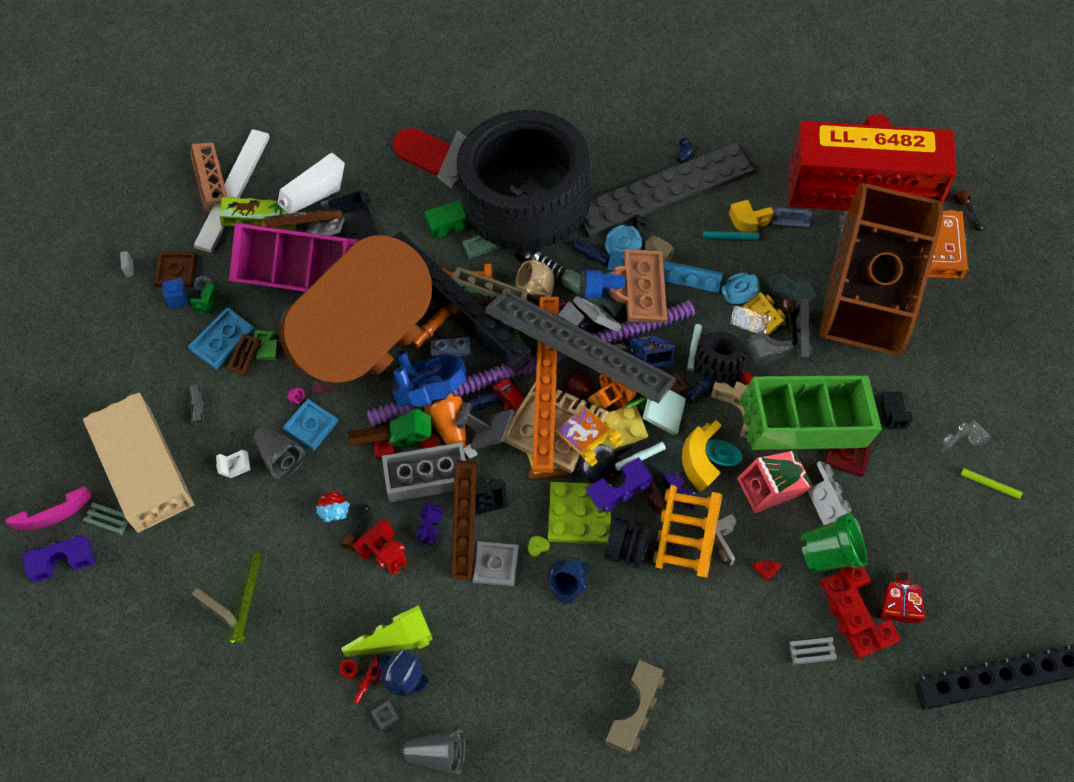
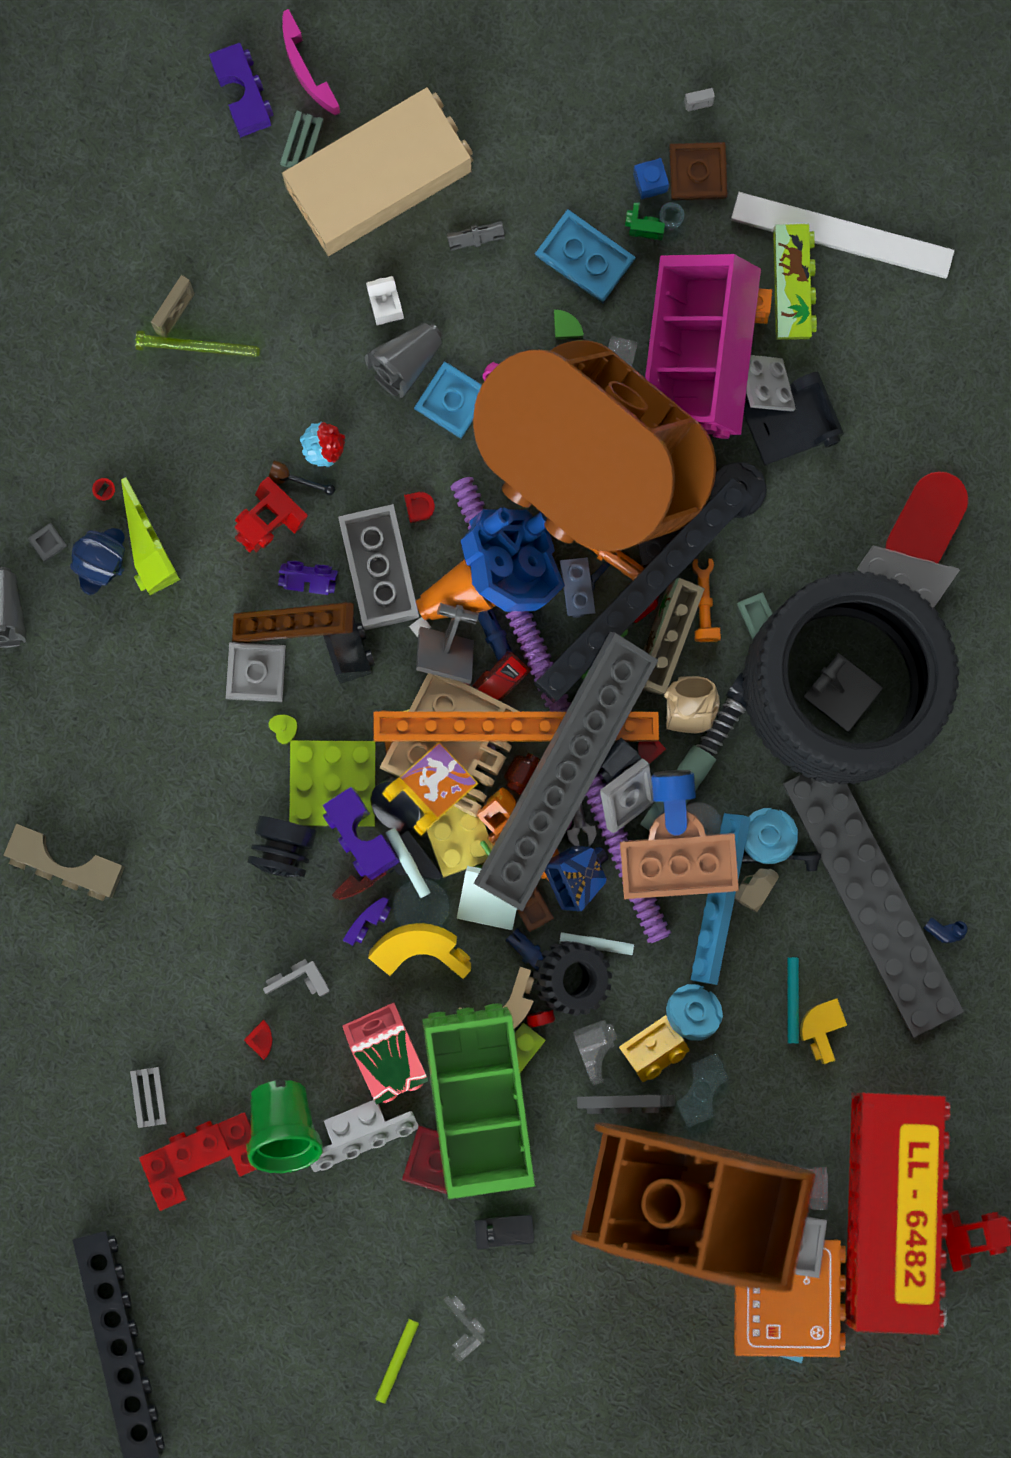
camera: 85 degrees right, 20 degrees up
(202, 177) = (859, 185): nougat fence -> none
(231, 366) = (578, 299): reddish brown tile -> none
(264, 336) = (586, 314): bright green tile -> none
(302, 217) = (777, 349): reddish brown tile -> none
(312, 185) = (836, 356): white slope -> none
(364, 685) = (94, 516): red hand -> none
(368, 435) = (436, 480): reddish brown tile -> none
(410, 428) = (441, 540): green brick -> none
(433, 441) = (430, 570): red tile -> none
(445, 219) = (796, 562): green brick -> none
(568, 578) = (233, 769): dark blue piece -> none
(591, 252) = (752, 788): dark blue pin -> none
(708, 524) = (307, 956): light orange fence -> none
(723, 453) = (433, 985): teal dish -> none
(749, 320) = (637, 1028): clear bracket -> none
(788, 307) = (665, 1084): hinge -> none
(791, 217) = (828, 1094): sand blue hinge -> none
(903, 601) = (218, 1220): red torso -> none
(964, 198) = (873, 1367): hinge -> none

